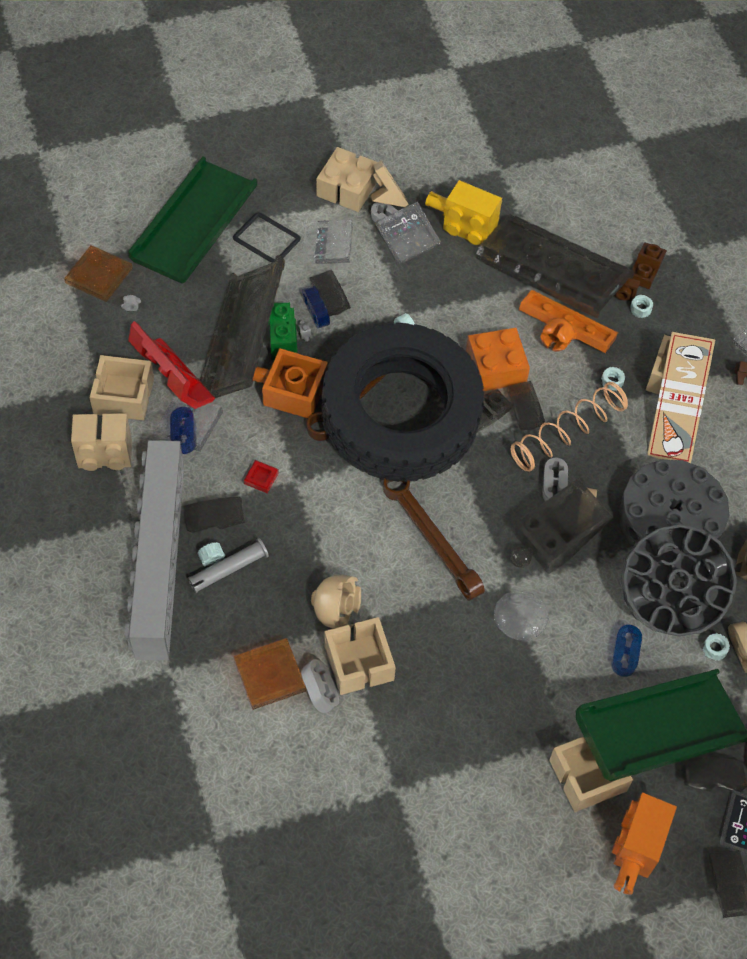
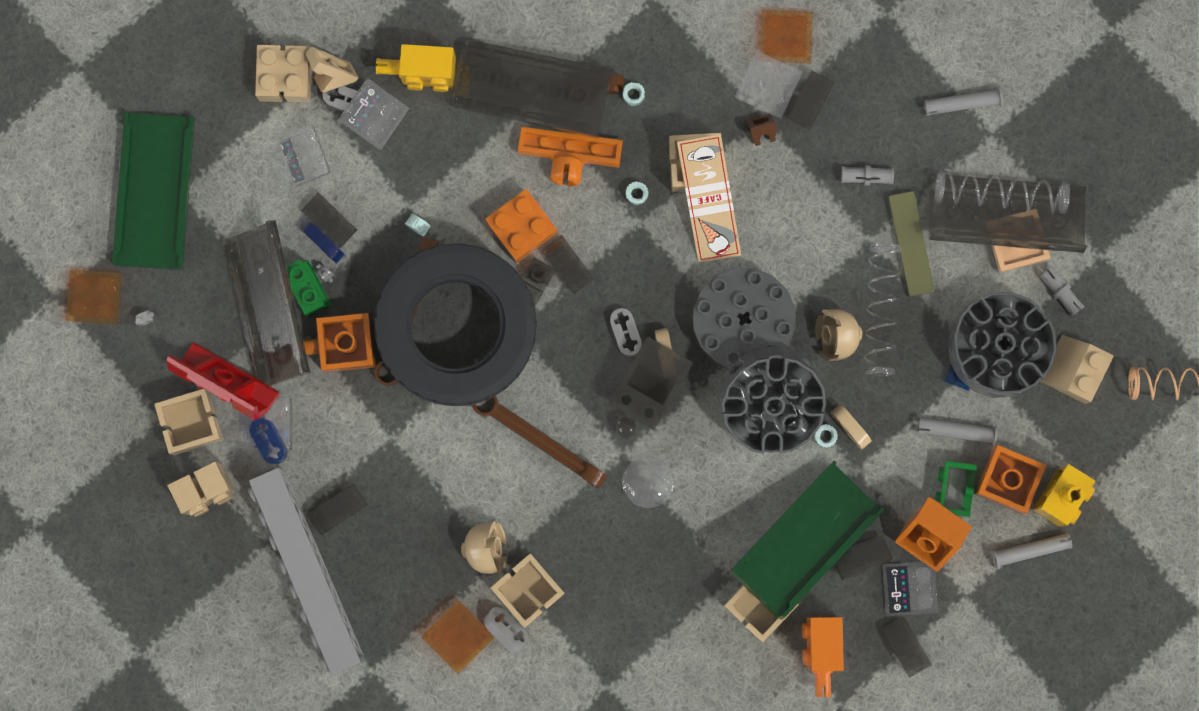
camera: 20 degrees left, 25 degrees up
(211, 554) = (354, 549): light aqua axle -> none
(228, 565) = (373, 553): light grey pin -> none
(261, 476) = (359, 448): red tile -> none
(276, 224) = (231, 197): black piece -> none
(528, 453) = (589, 324): light nougat piece -> none
(620, 649) = (757, 474): clear blue beam -> none
(648, 264) = (621, 40): reddish brown slope -> none

